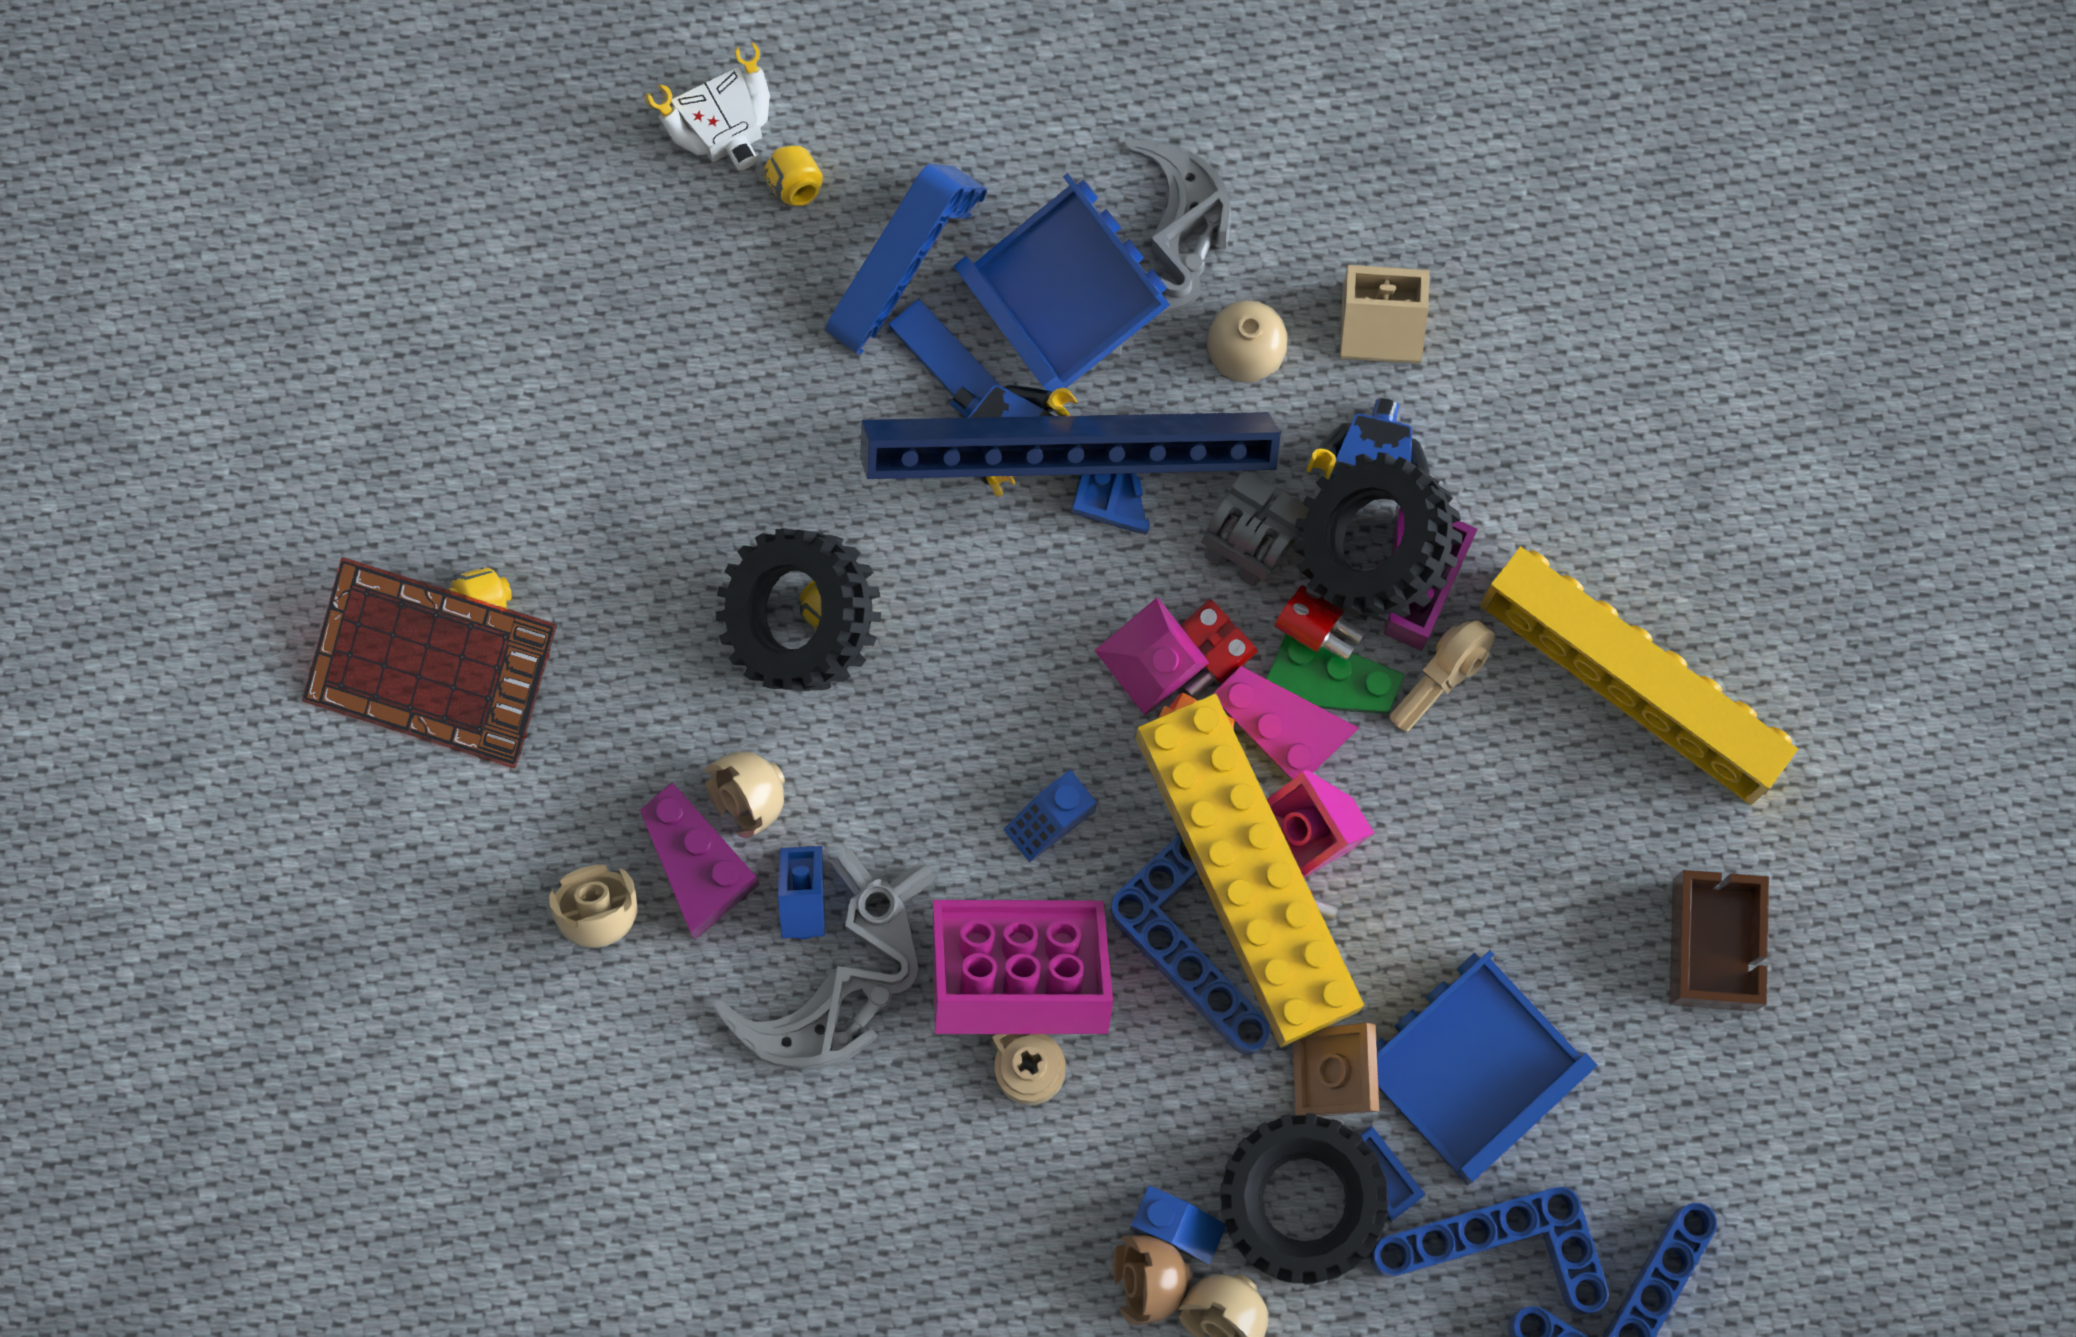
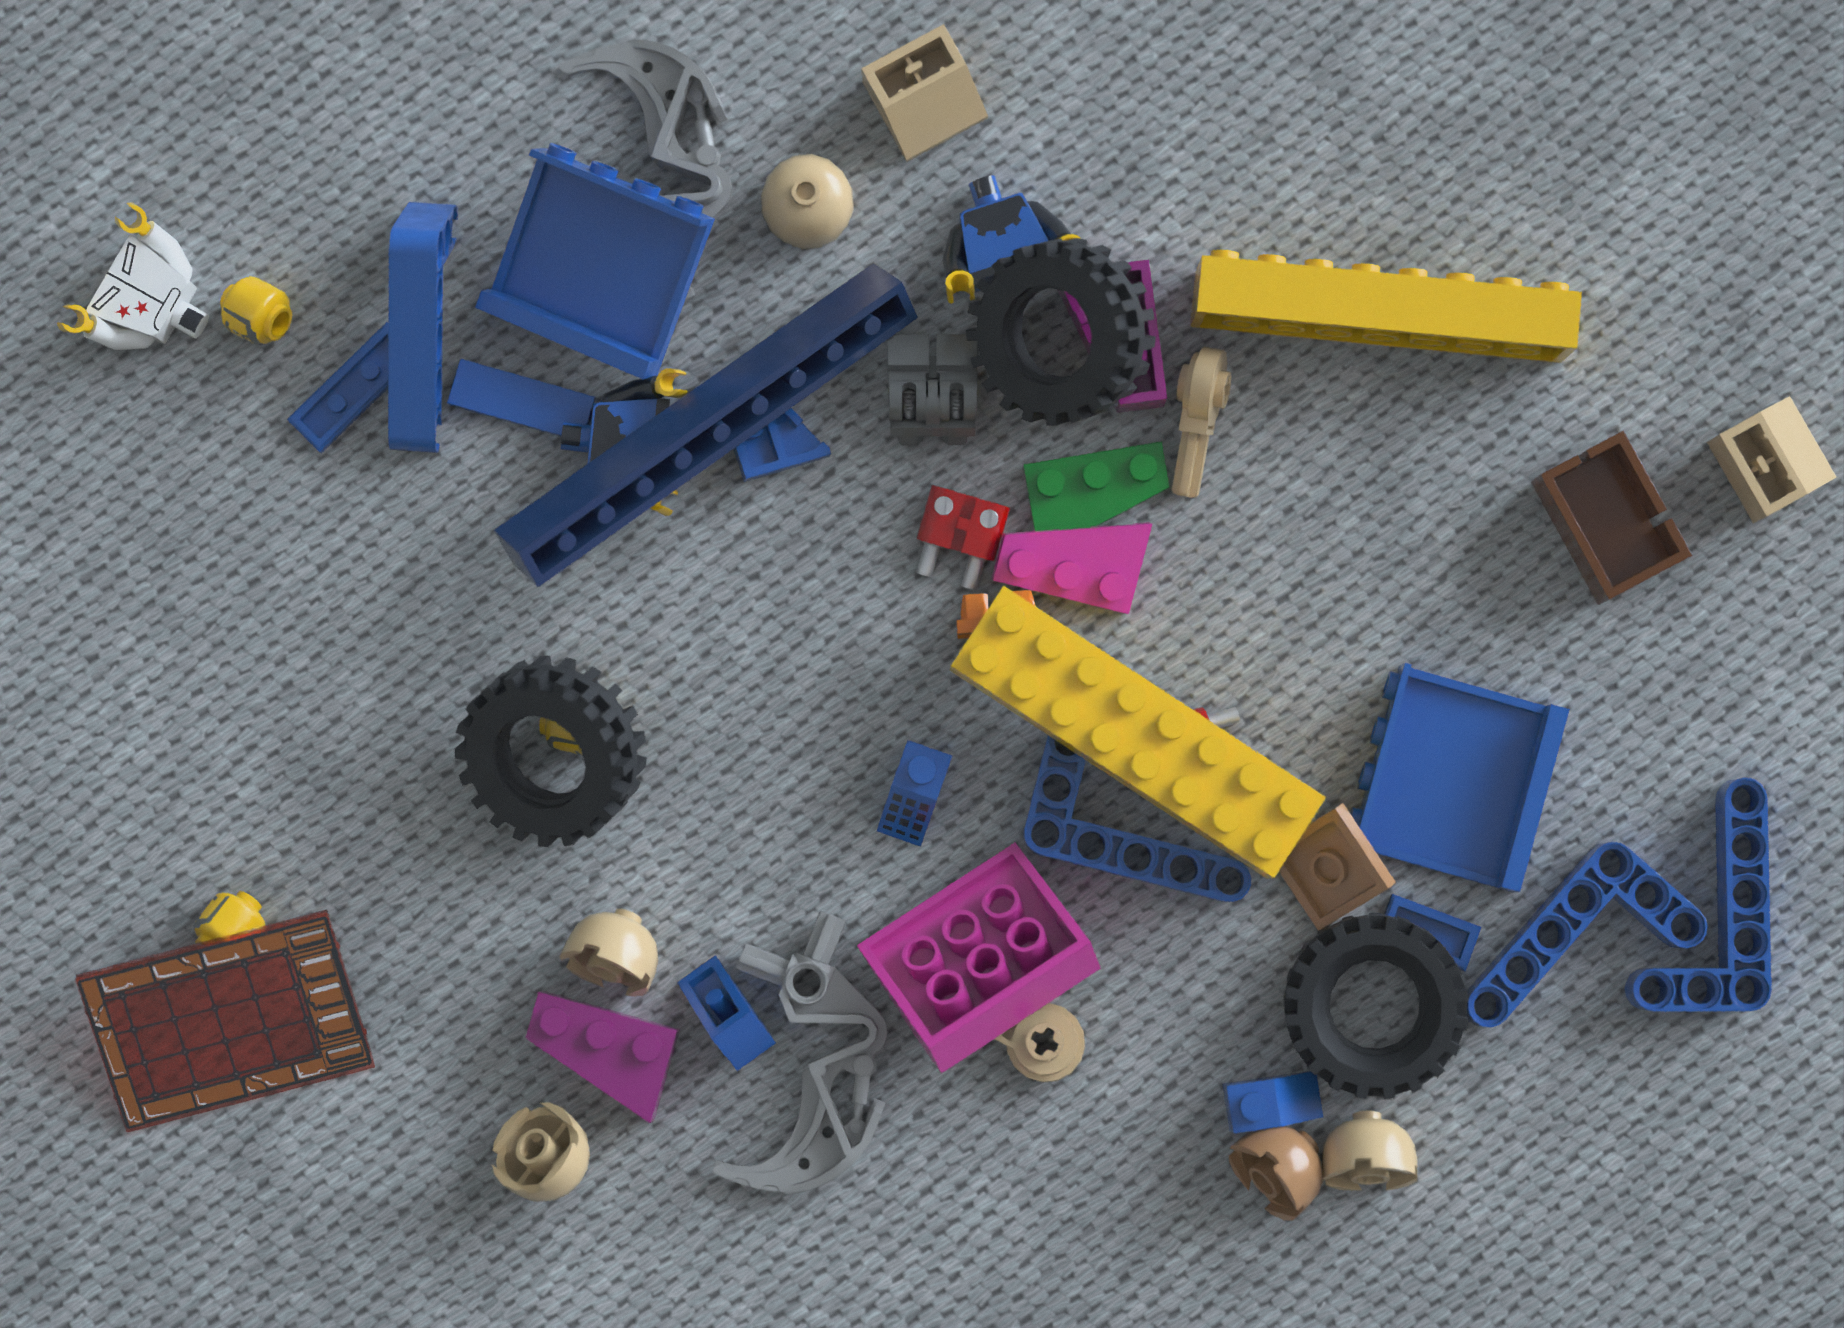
camera: 30 degrees left, 10 degrees up
(815, 274) = (345, 393): none -> blue tile
(1151, 656) = (912, 576): dark pink slope -> none
(1312, 621) = (1045, 449): red piece -> none
(1318, 821) = (1168, 641): slope -> none
(1874, 975) = (1771, 459): none -> tan slope

